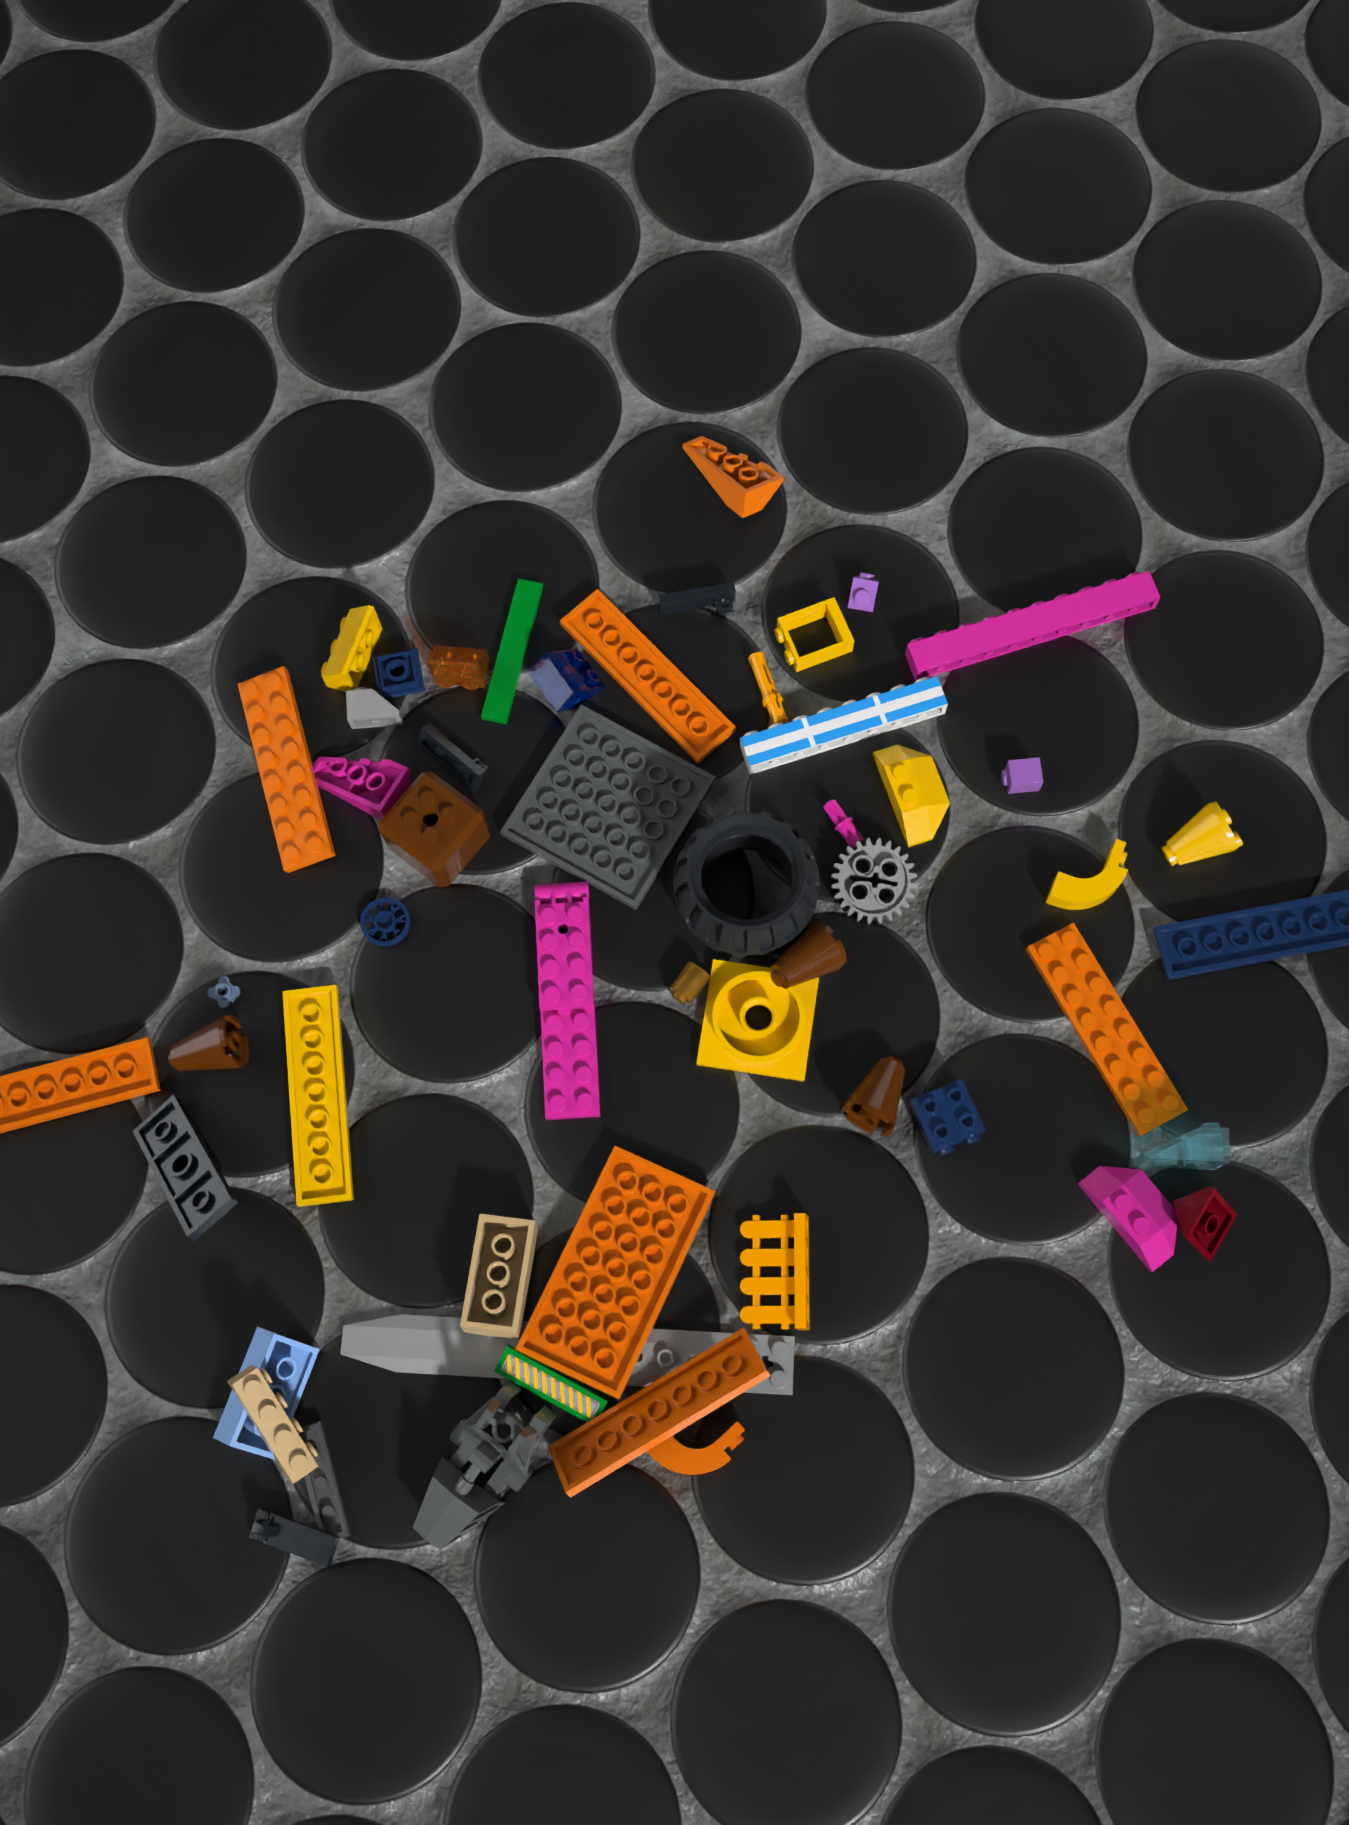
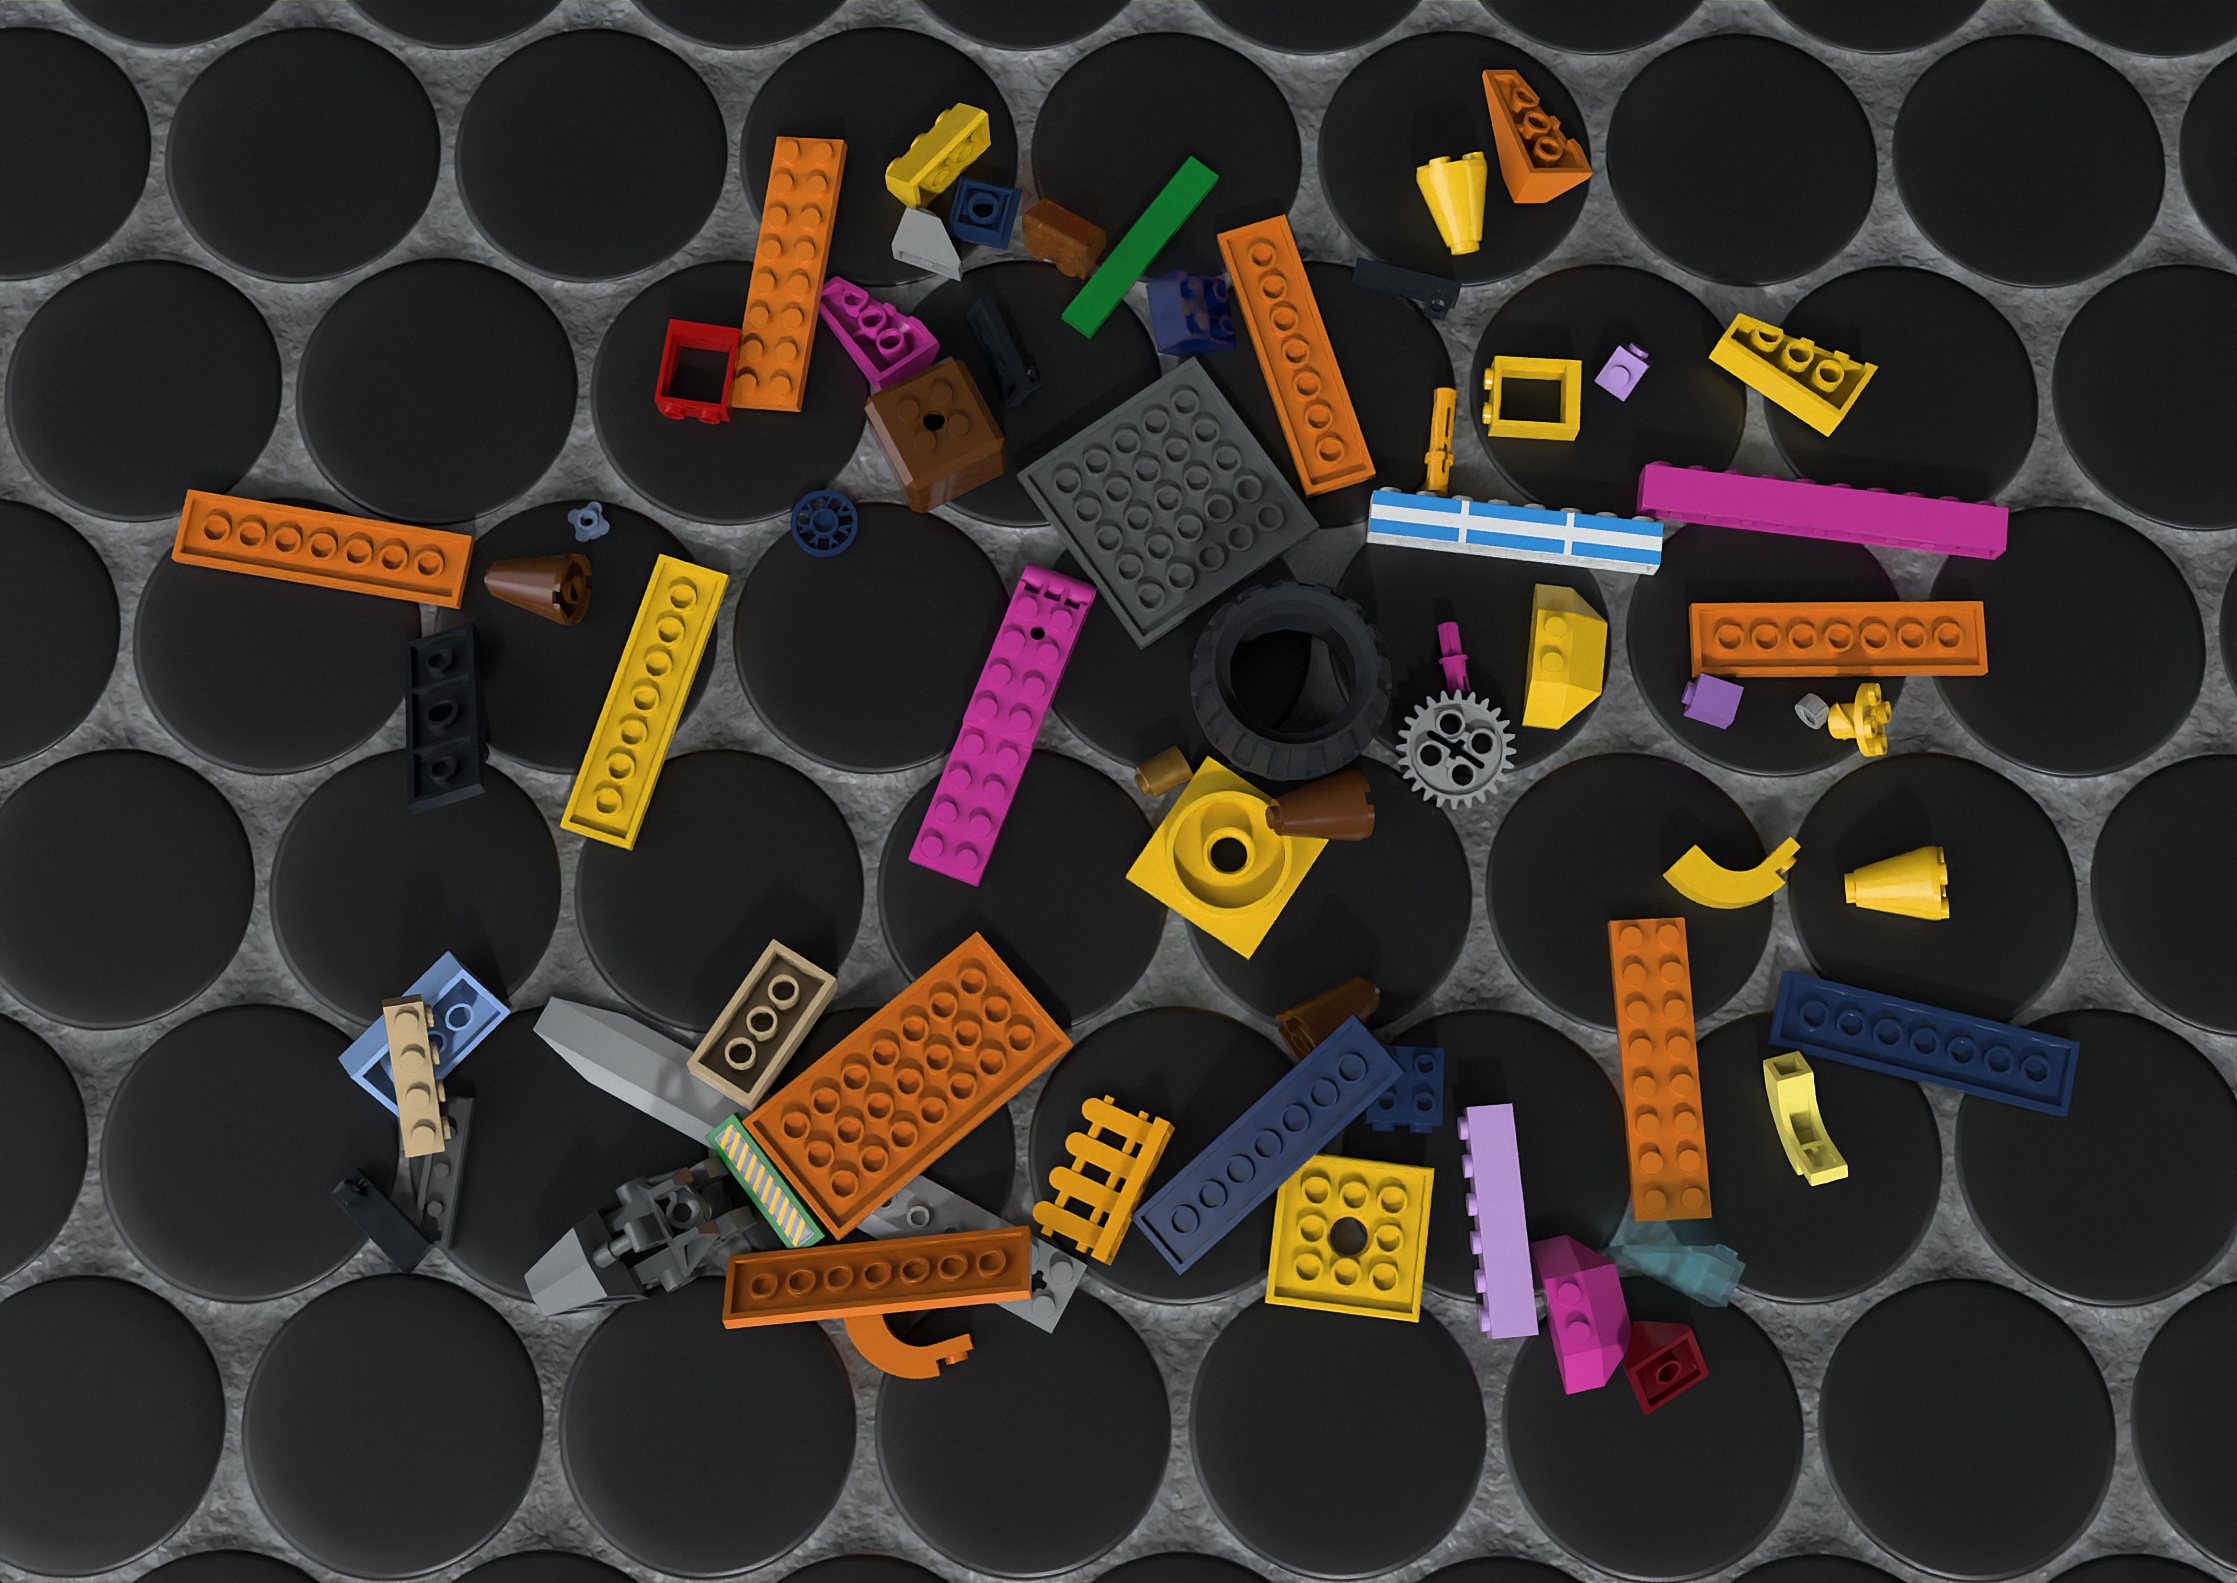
camera: 20 degrees right, 5 degrees up
(247, 835) = (702, 337): none -> red window
(704, 531) = (1456, 199): none -> yellow cone
(877, 1197) = (1268, 1144): none -> dark blue plate
(971, 546) = (1793, 371): none -> yellow wedge
(982, 1204) = (1386, 1273): none -> yellow piece
(1053, 1178) = (1499, 1221): none -> lavender brick
(1082, 701) = (1838, 639): none -> orange plate
(1089, 753) = (1812, 711): none -> light grey axle
(1124, 744) = (1862, 720): none -> yellow plate
(1211, 1019) = (1798, 1119): none -> light yellow arch

